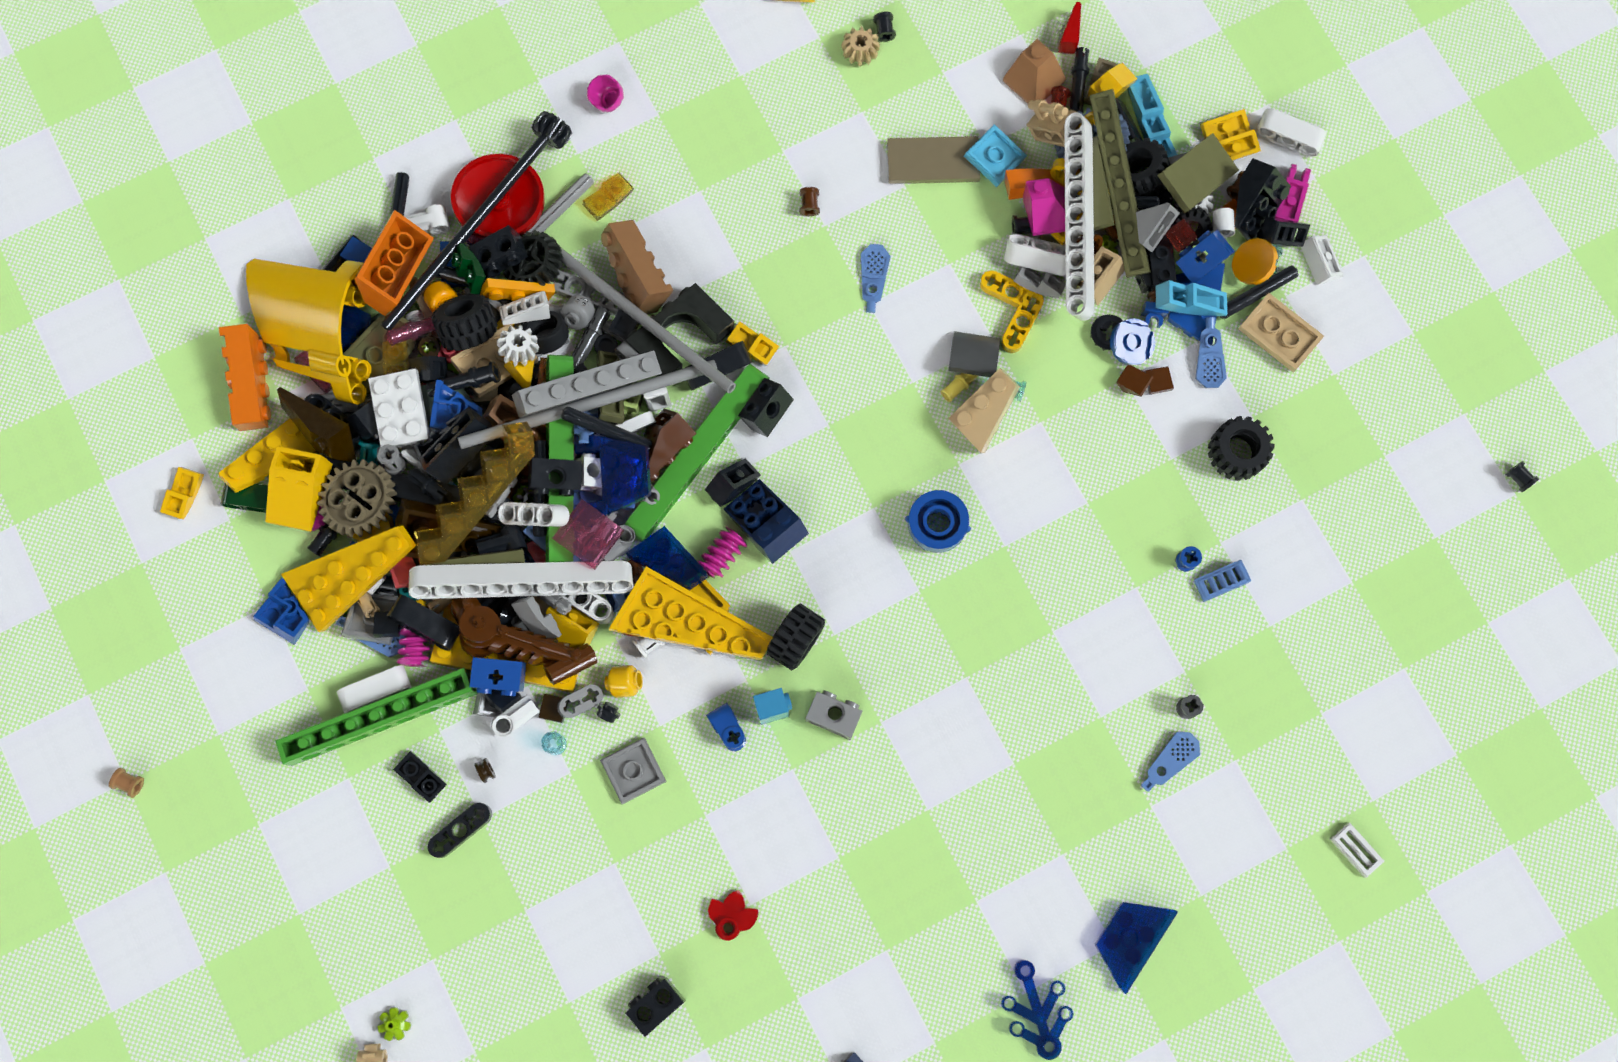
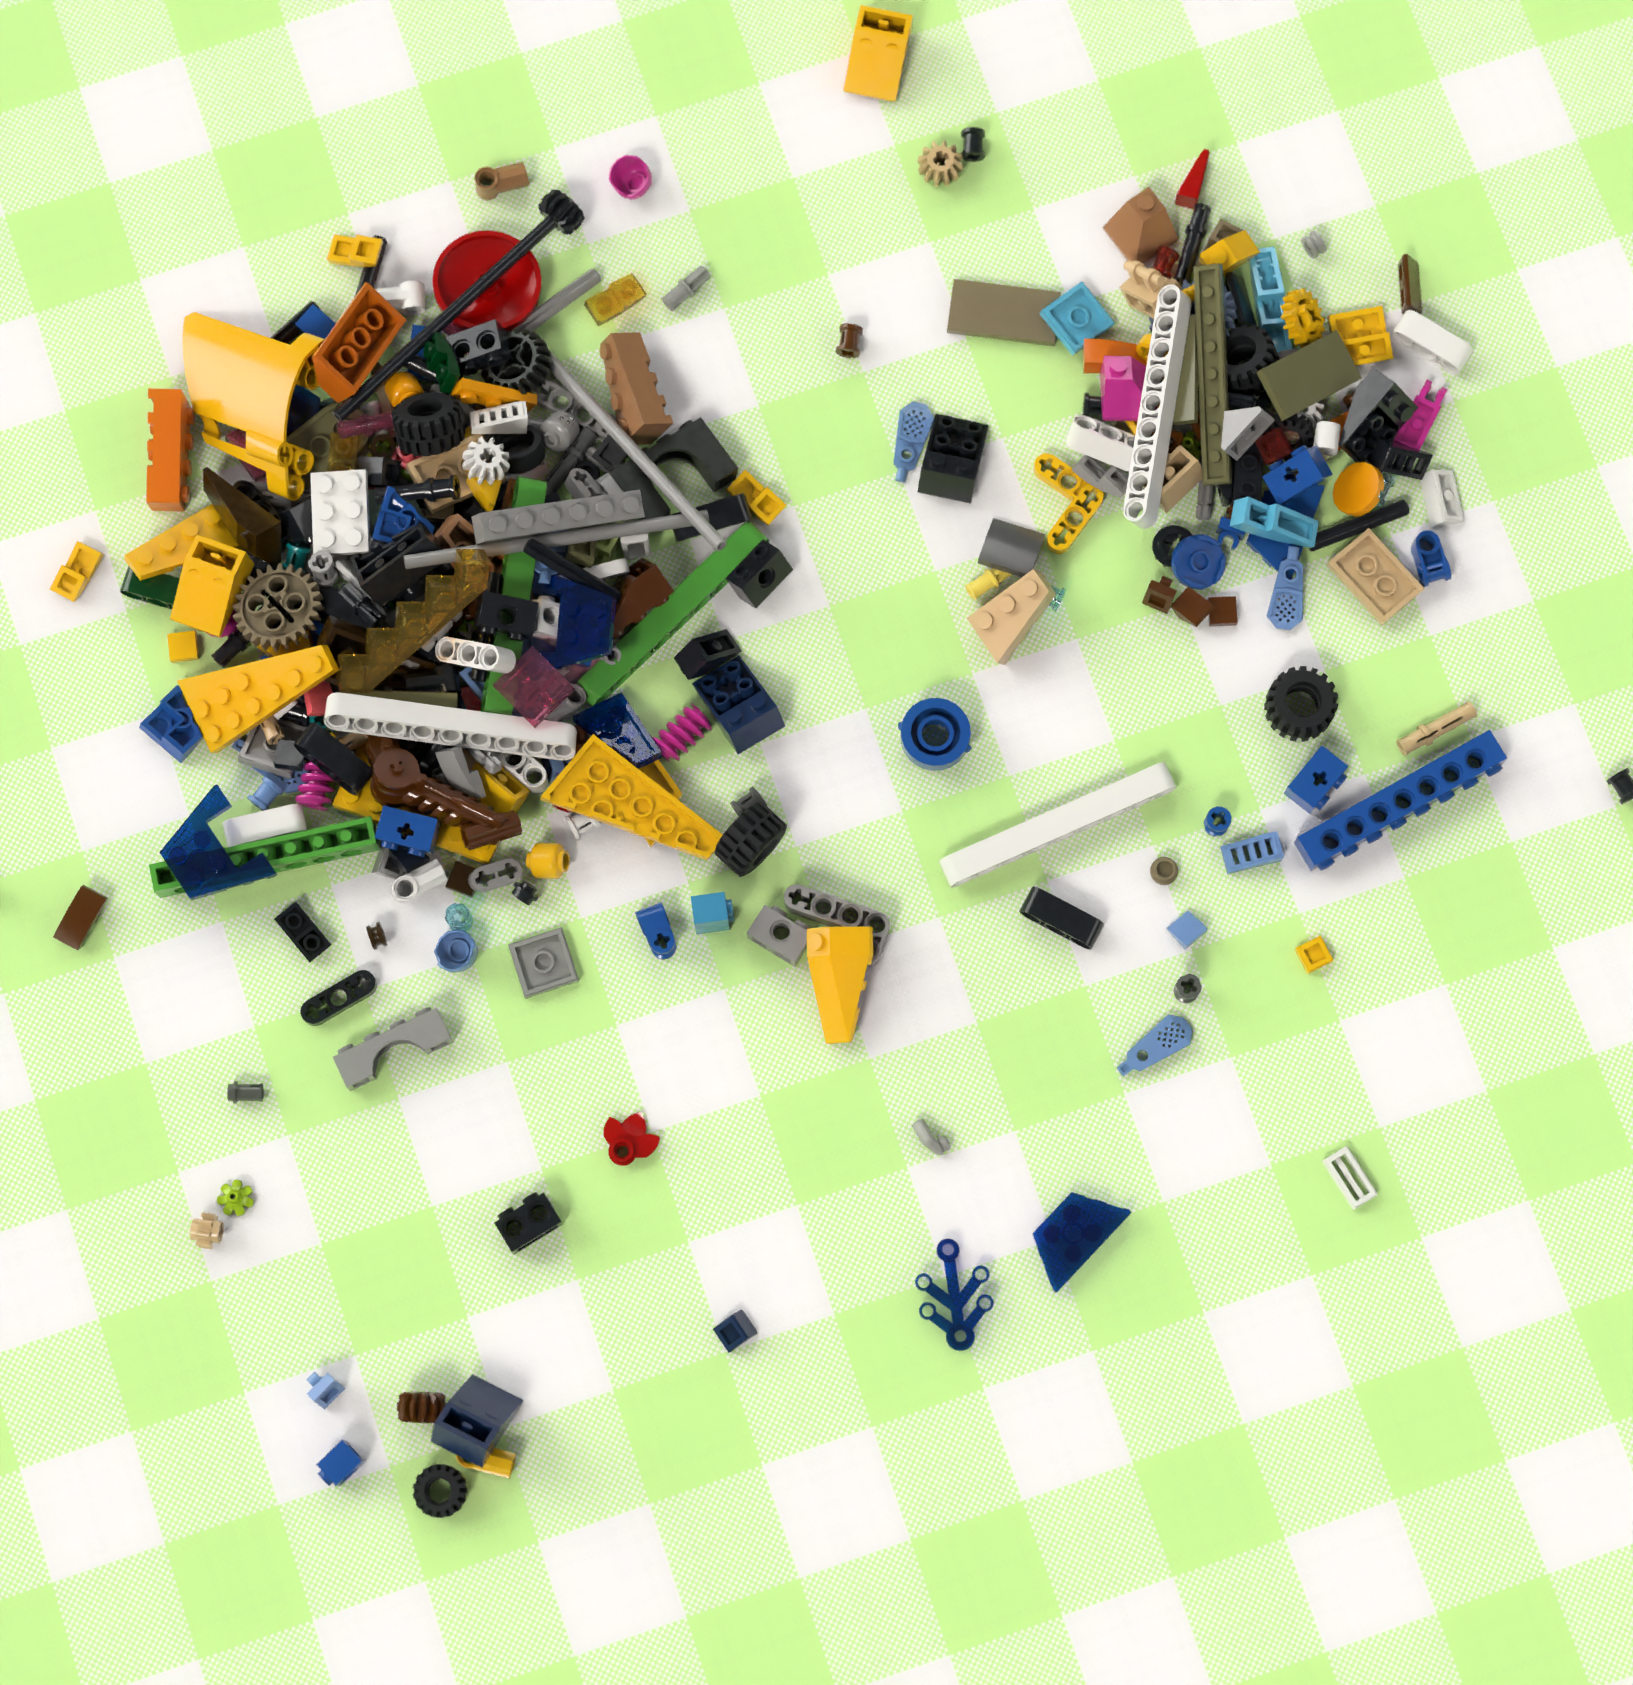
camera: 10 degrees right, 0 degrees up
(223, 794) = (80, 917): none -> reddish brown slope
(282, 543) = (183, 646): none -> yellow tile
(319, 729) = (200, 858): none -> clear blue wing
(370, 661) = (265, 794): none -> medium blue bush
(382, 188) = (355, 252): none -> yellow slope
(388, 928) = (245, 1092): none -> dark grey pin
(486, 887) = (359, 1062): none -> light grey arch
(498, 111) = (503, 179): none -> medium nougat piece
(556, 773) = (456, 951): none -> medium blue hair
(603, 353) = (581, 484): none -> light grey beam
(665, 178) = (686, 288): none -> light grey axle
(787, 604) = (746, 801): none -> dark grey bush
(879, 694) = (834, 917): none -> light grey beam
(890, 741) = (838, 970): none -> yellow wedge
(912, 286) = (952, 458): none -> black slope
(991, 875) = (927, 1138): none -> light grey arm
(1053, 582) = (1057, 824): none -> white beam
(1071, 662) = (1061, 918): none -> black beam
(1105, 374) = (1160, 595): none -> reddish brown tile
(1127, 291) = (1204, 501): none -> light grey axle
(1150, 608) = (1164, 871): none -> dark tan plate
(1178, 67) = (1313, 244): none -> light grey bush
(1179, 655) = (1187, 929): none -> medium blue slope
(1182, 127) = (1302, 317): none -> yellow gear
(1256, 521) = (1321, 765): none -> blue brick
(1261, 89) = (1409, 284): none -> slope
(1289, 660) = (1314, 954): none -> yellow tile
(1323, 312) = (1430, 564): none -> blue piece
(1348, 457) = (1427, 733): none -> tan pin
(1400, 463) = (1483, 748): none -> blue brick

